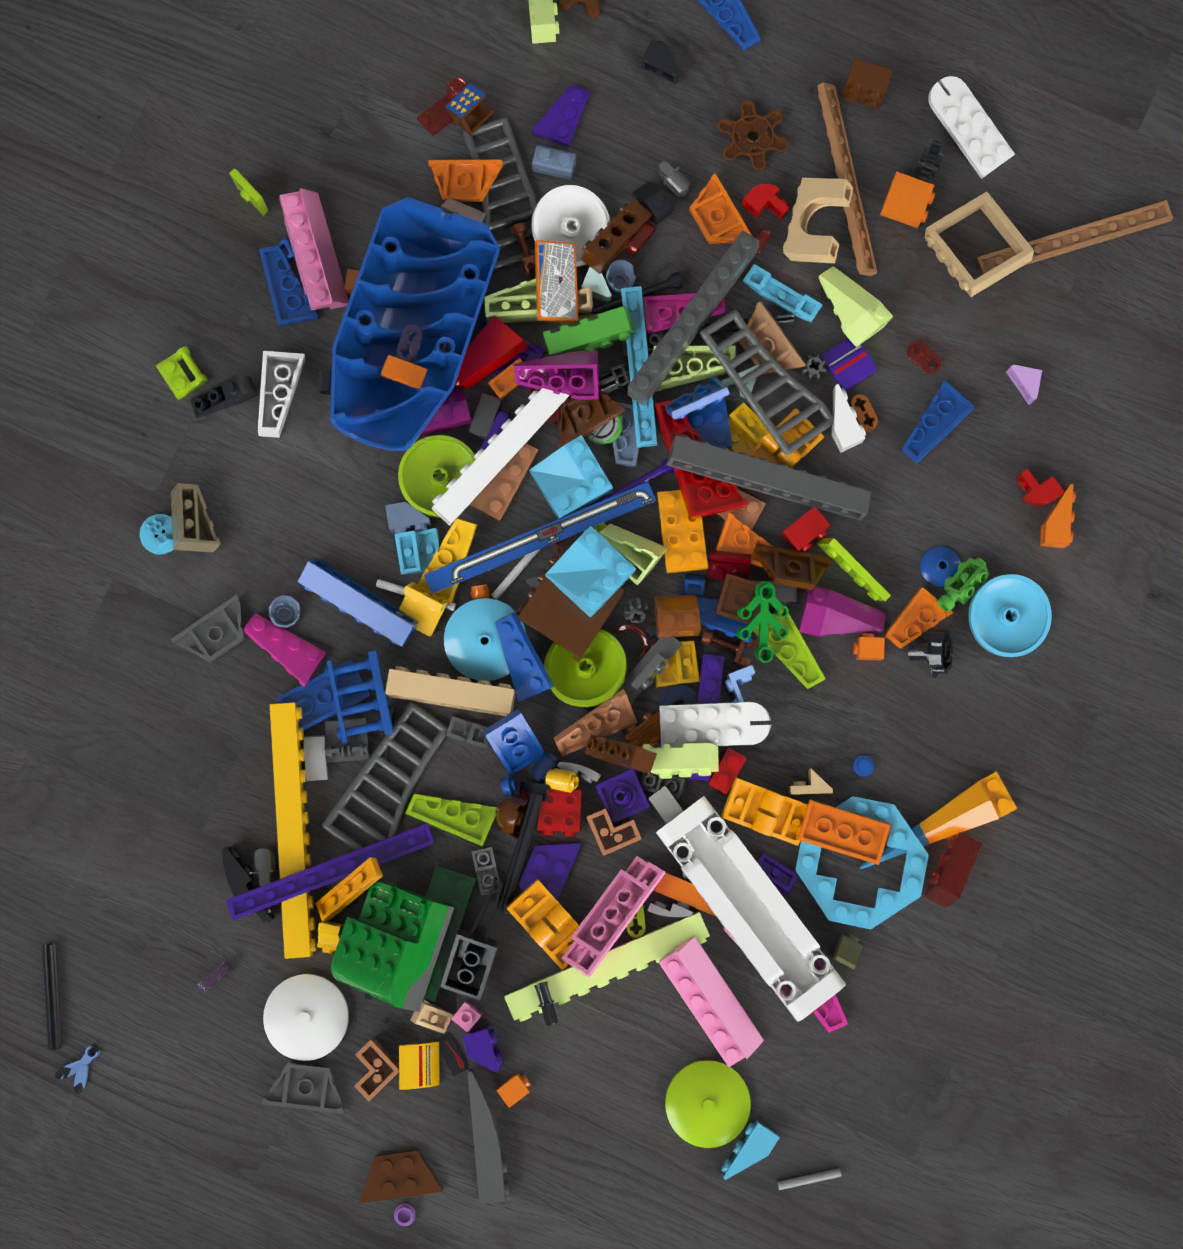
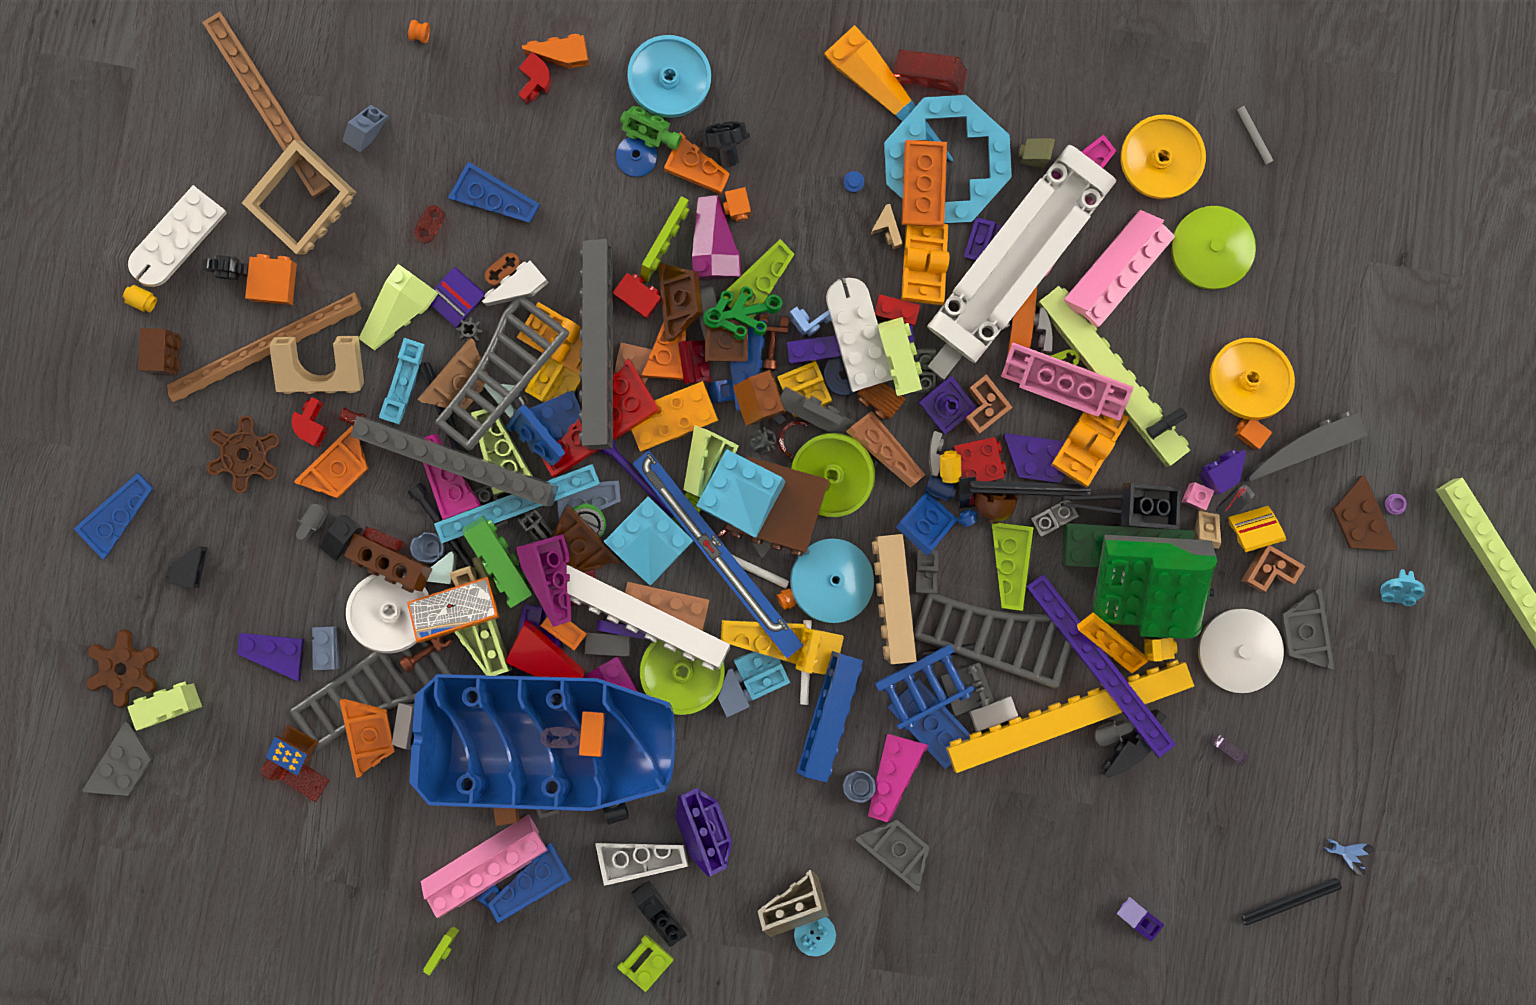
camera: 105 degrees left, 5 degrees up
(80, 844) = (1140, 919): none -> slope
(286, 457) = (704, 831): none -> dark purple wedge
(318, 1195) = (1402, 589): none -> medium azure plate
(522, 660) = (846, 536): blue wing -> none
(578, 1118) = (1266, 369): none -> yellow dish
(620, 753) = (911, 415): reddish brown brick -> none
(754, 1147) = (1242, 193): medium azure slope -> none
(814, 1097) = (1174, 142): none -> yellow dish
(920, 81) = (139, 298): none -> yellow brick
(1026, 380) = (428, 116): lavender slope -> none
(1030, 320) = (364, 128): none -> sand blue slope
(1110, 394) = (419, 31): none -> orange wheel

